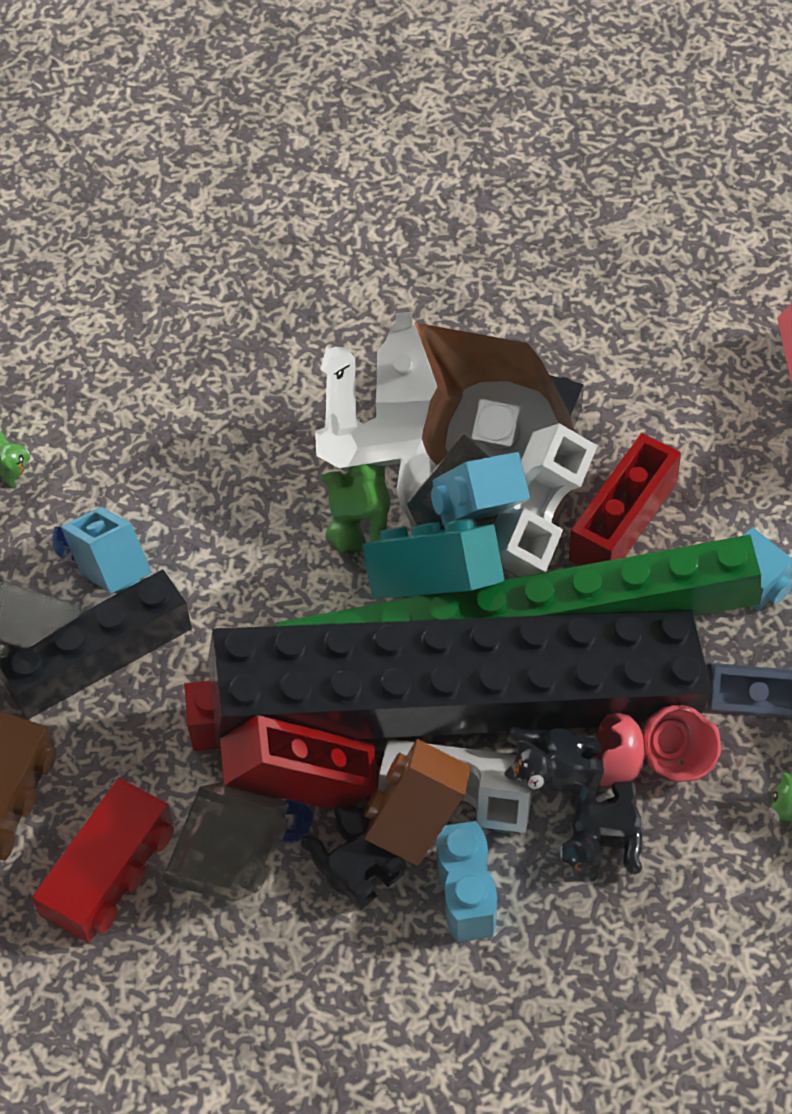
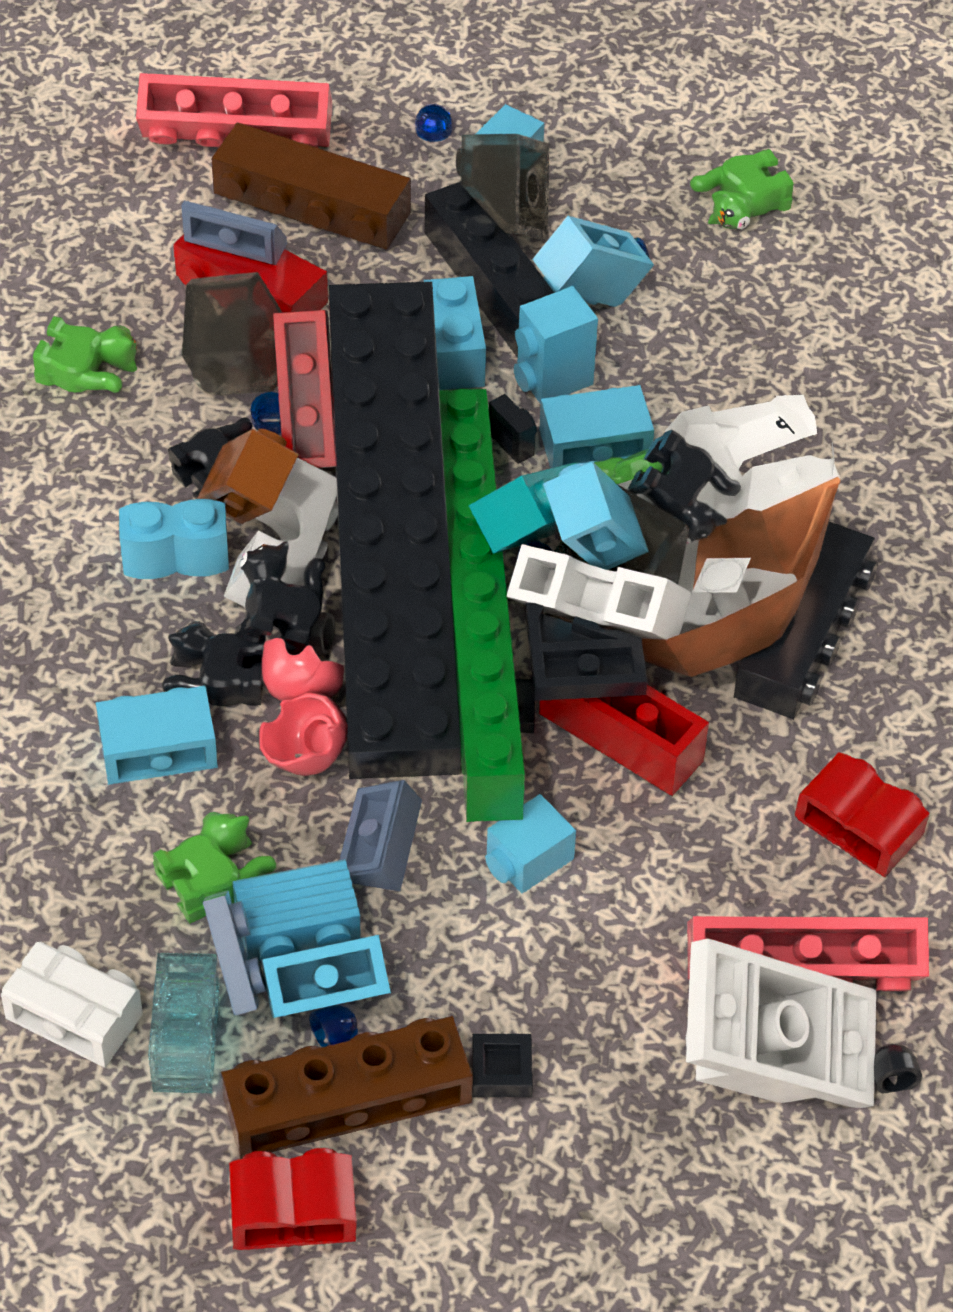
camera: 90 degrees right, 5 degrees down
(79, 860) = (232, 233): none -> sand blue slope
(167, 664) = (458, 334): none -> medium azure brick
(212, 574) = (556, 345): none -> medium azure brick
(227, 1012) = (77, 354): none -> bright green animal
(294, 550) = (595, 425): none -> medium azure brick
(299, 605) = (512, 428): none -> black plate
(414, 444) = (682, 478): none -> black animal
(605, 515) = (582, 659): none -> black wing
(678, 353) = (862, 813): none -> red brick
(694, 868) = (156, 734): none -> medium azure brick

